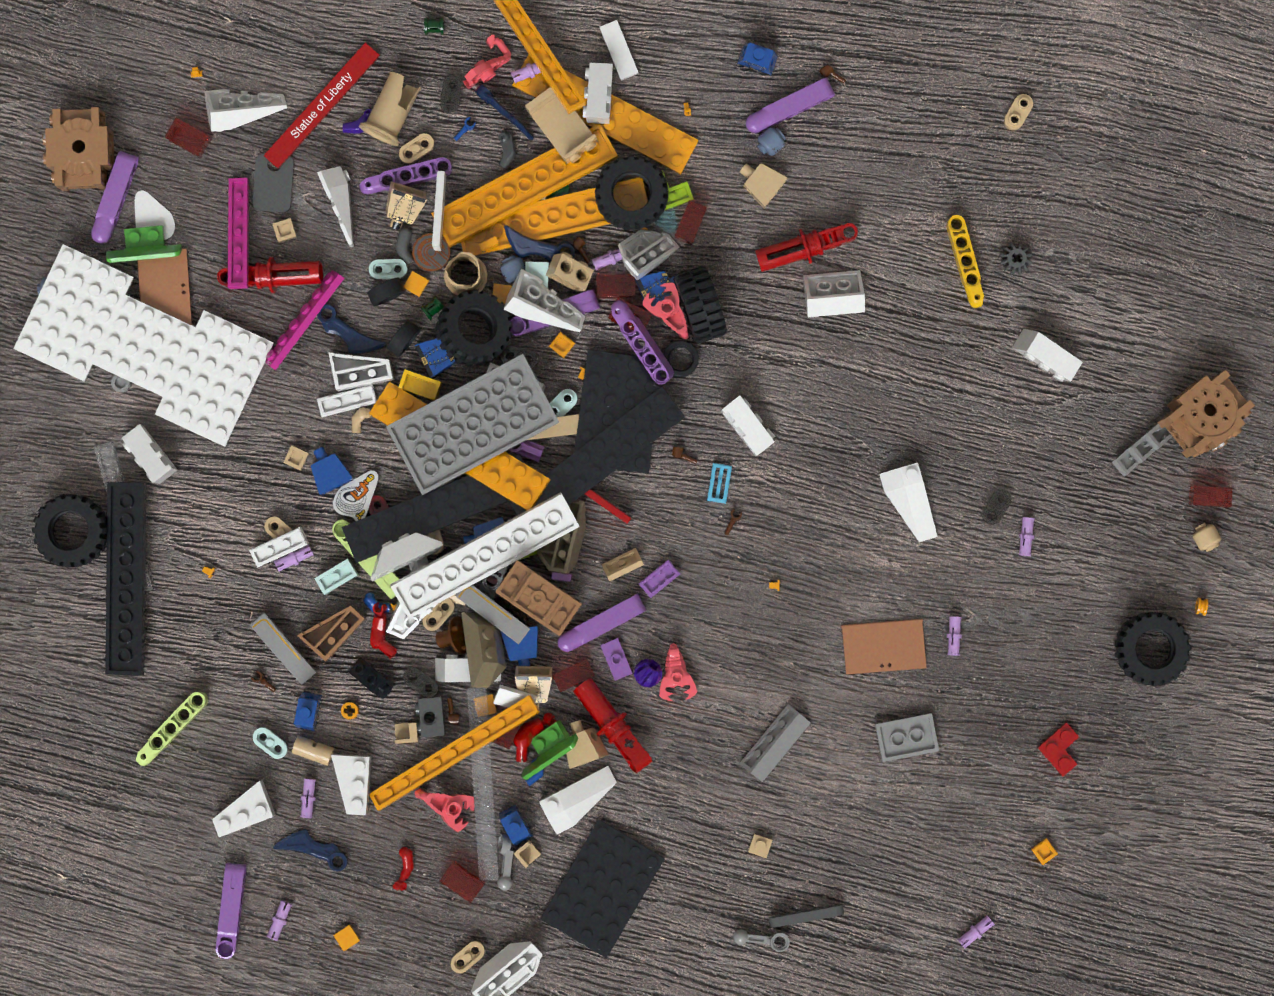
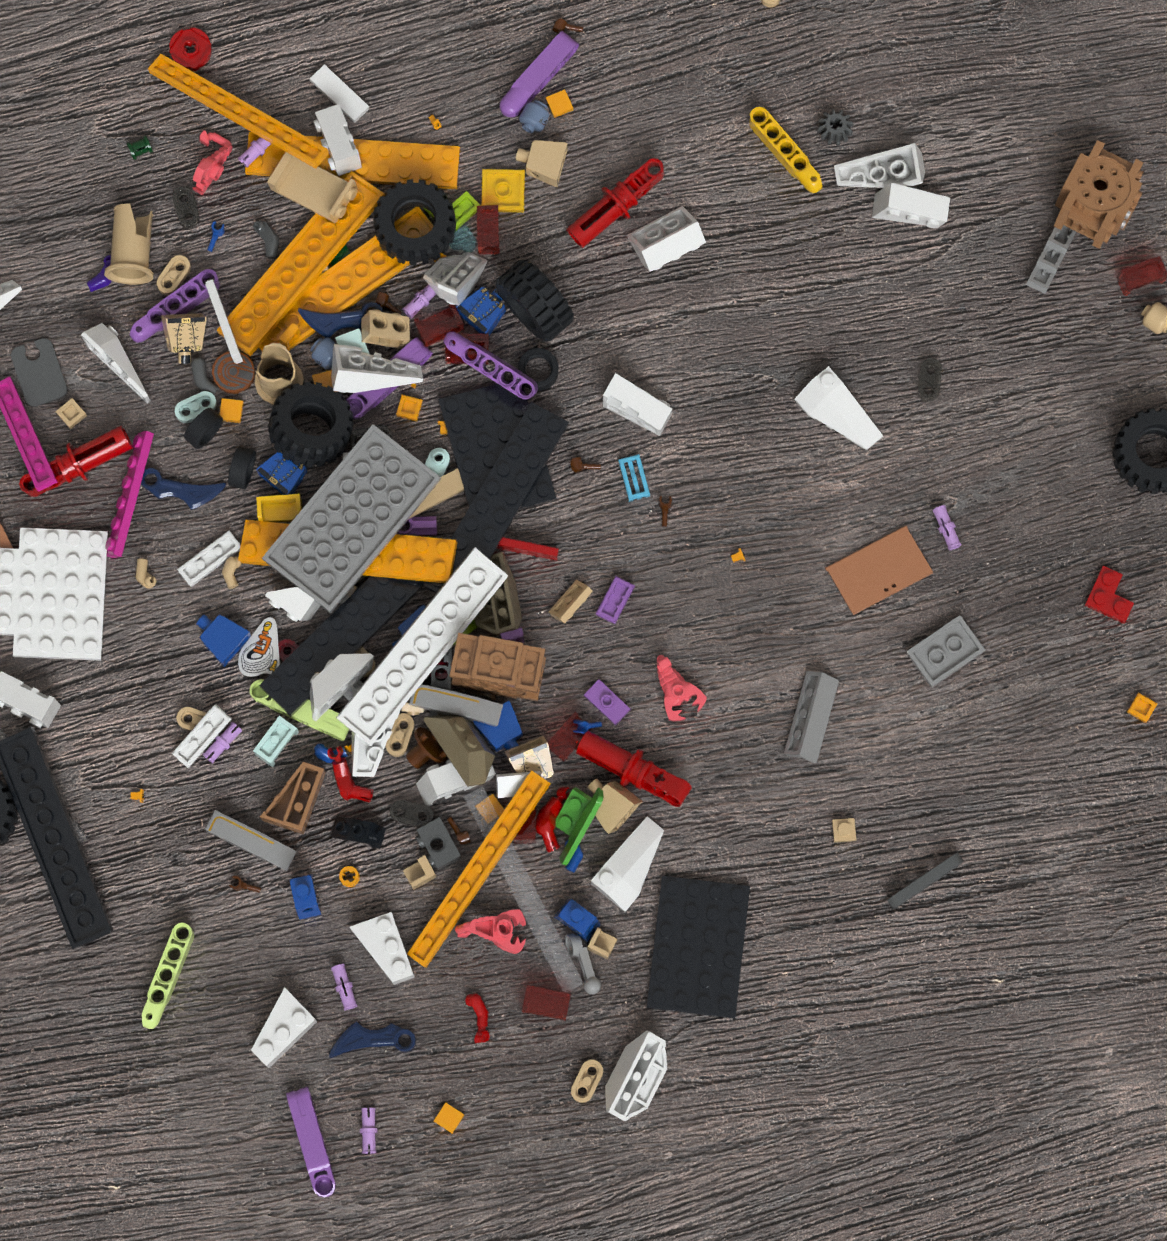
camera: 20 degrees left, 10 degrees down
(270, 743) = (279, 946): light aqua plate -> none
(287, 392) = (142, 576): none -> tan arm
(296, 458) = (181, 638): tan plate -> none
(313, 751) = (330, 934): tan pin -> none
(321, 105) = (56, 274): red tile -> none
(359, 371) = (210, 520): white wedge -> none
(395, 469) = (295, 602): none -> white slope
(432, 308) = (258, 426): dark green bush -> none
(489, 98) = (224, 193): dark blue piece -> none
(587, 673) = (583, 726): none -> blue hand
(601, 623) = (575, 671): medium lavender piece -> none
(648, 673) = (646, 700): dark purple piece -> none
(669, 310) = (505, 323): coral animal -> none
(718, 192) = (504, 189): none -> yellow tile
(741, 937) = (867, 933): light grey piece -> none
(758, 58) = (484, 41): blue torso -> none
(797, 138) = (559, 103): none -> light orange tile
(975, 931) = (1110, 821): lavender pin -> none
(1026, 536) = (974, 396): lavender pin -> none
(1041, 315) = (896, 166): none -> white wedge

